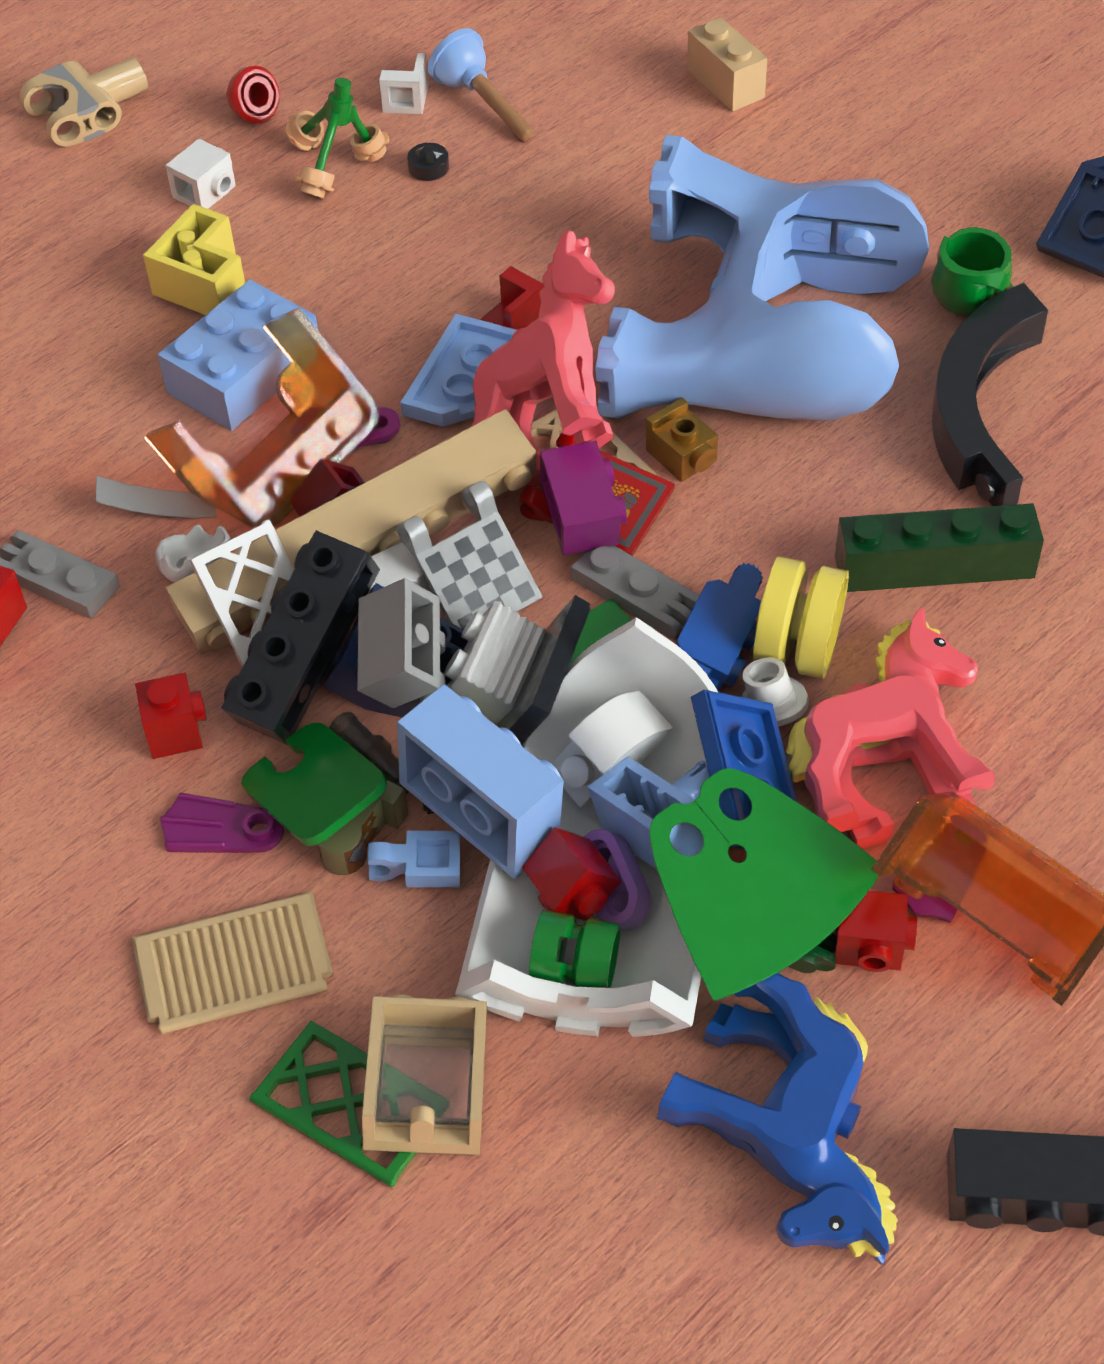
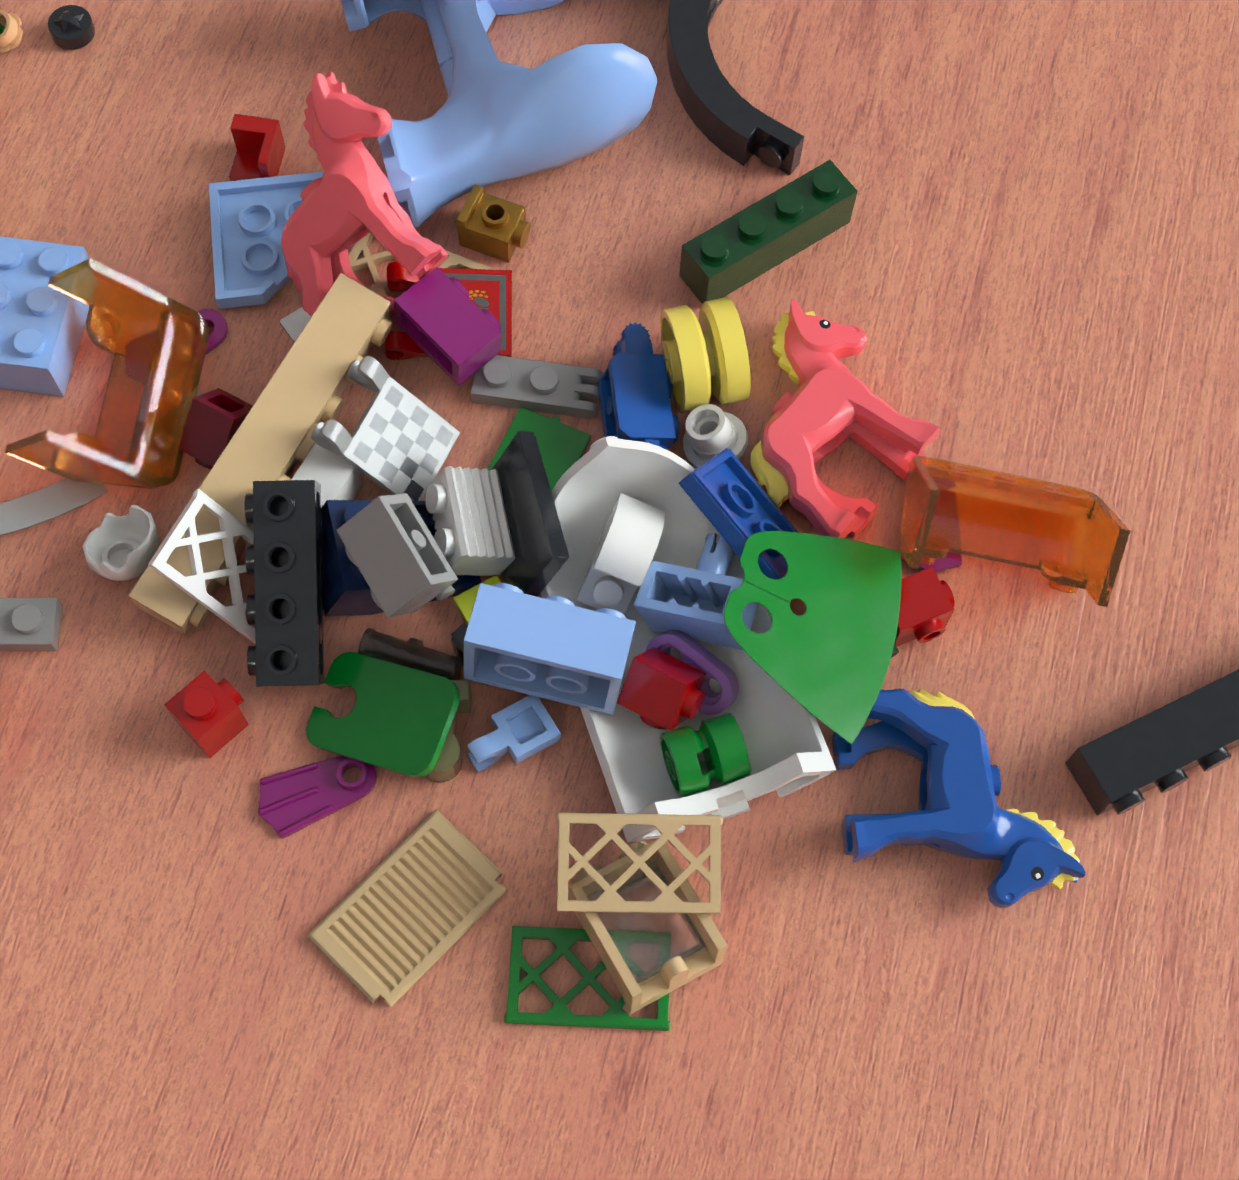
camera: 35 degrees left, 15 degrees up
(448, 1051) = (667, 900): none -> tan window

